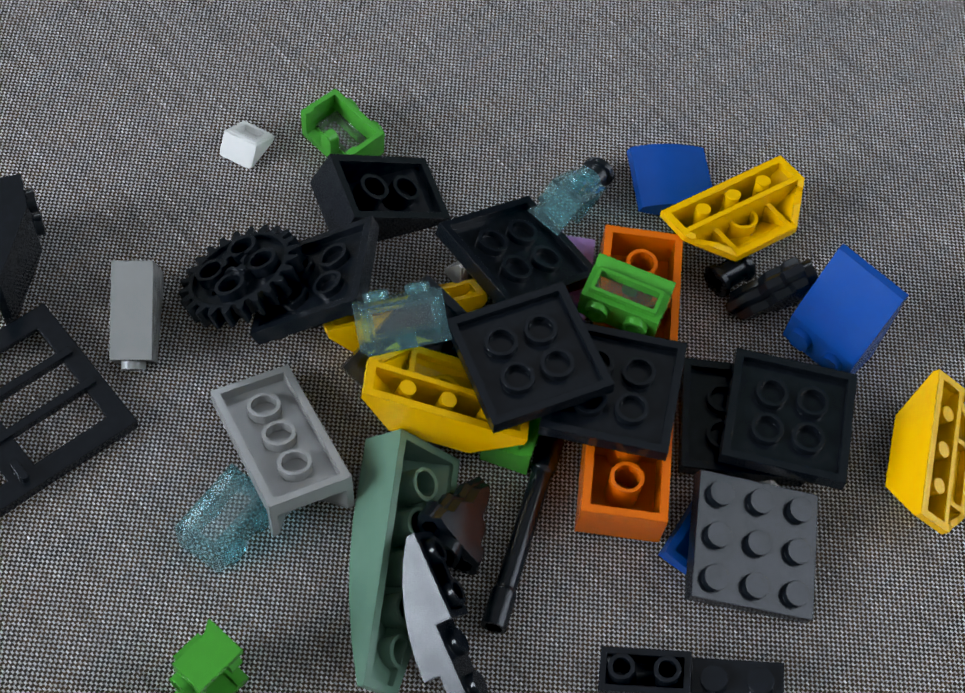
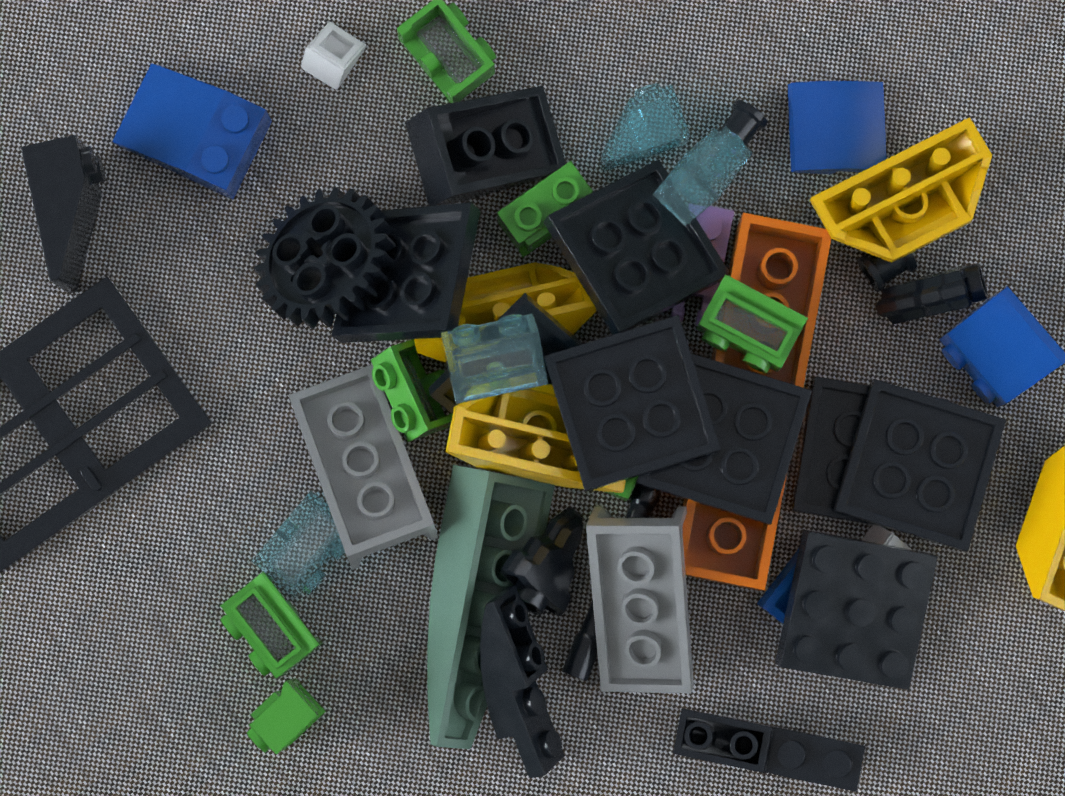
camera: 10 degrees right, 25 degrees up
(129, 195) = (193, 129): none -> blue slope
(135, 313) = (207, 295): light grey slope -> none
(191, 591) = (269, 627): none -> bright green window
(322, 386) = (406, 386): none -> bright green window
(417, 246) = (524, 216): none -> bright green window
(515, 175) = (646, 127): none -> clear light blue slope
(553, 544) = (640, 602): none -> light grey plate

